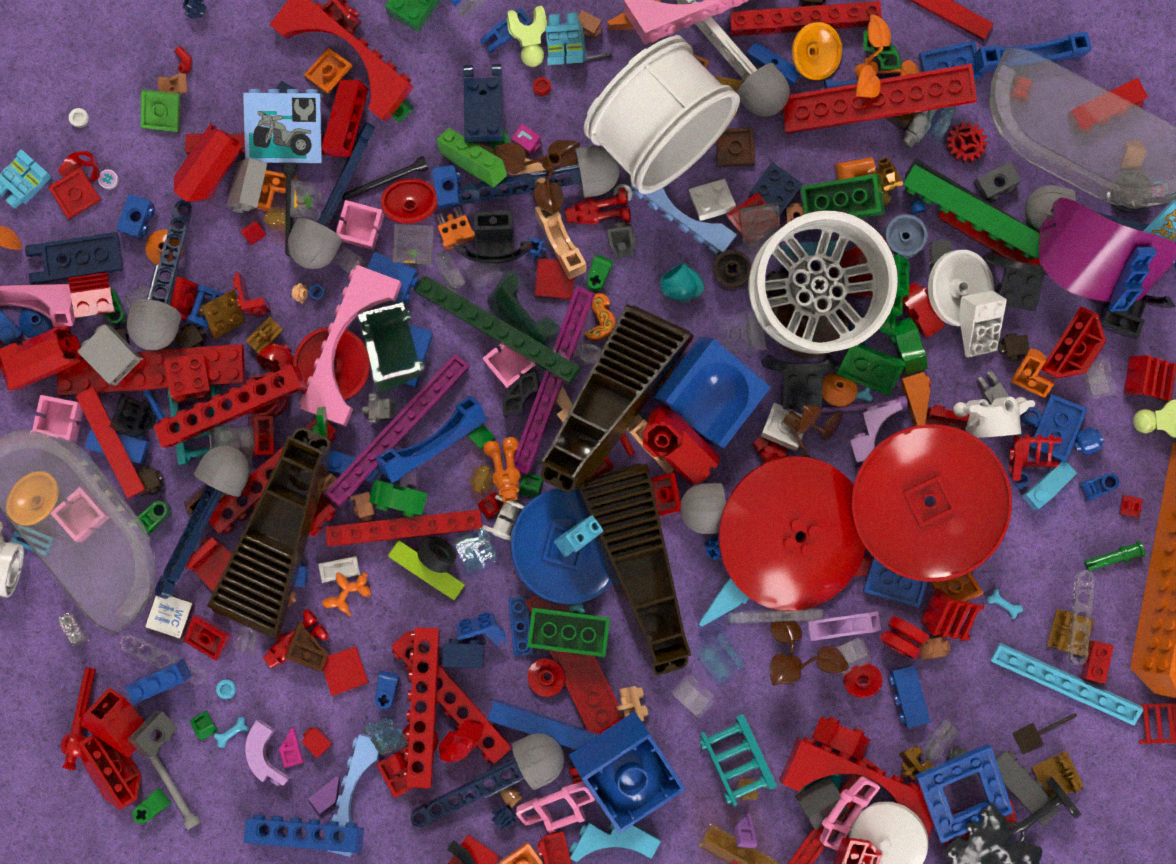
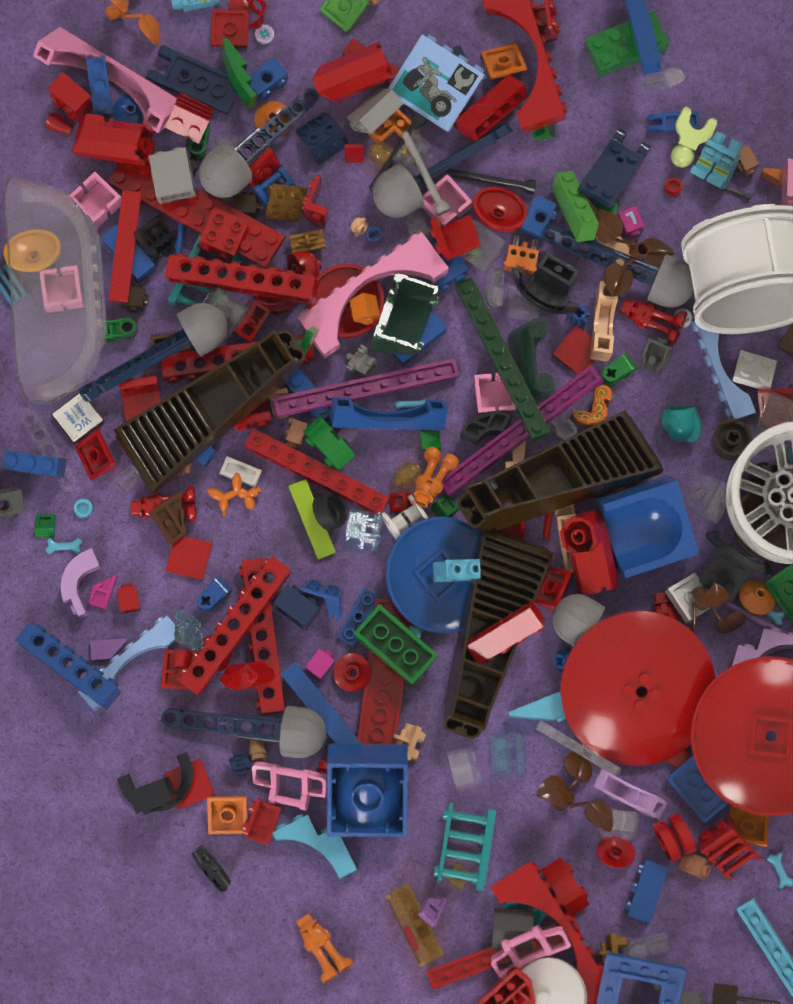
camera: 35 degrees right, 5 degrees down
(104, 226) = (236, 70): none -> green slope
(217, 236) = (322, 137): none -> dark blue bracket
(352, 362) = (364, 308): none -> orange brick
(357, 231) = (441, 206): none -> light grey piece
(388, 250) = (455, 237): none -> red bracket
(435, 423) = (407, 404): none -> medium azure piece
(515, 687) = (320, 664): none -> dark pink brick
(654, 561) = (506, 633): none -> brick

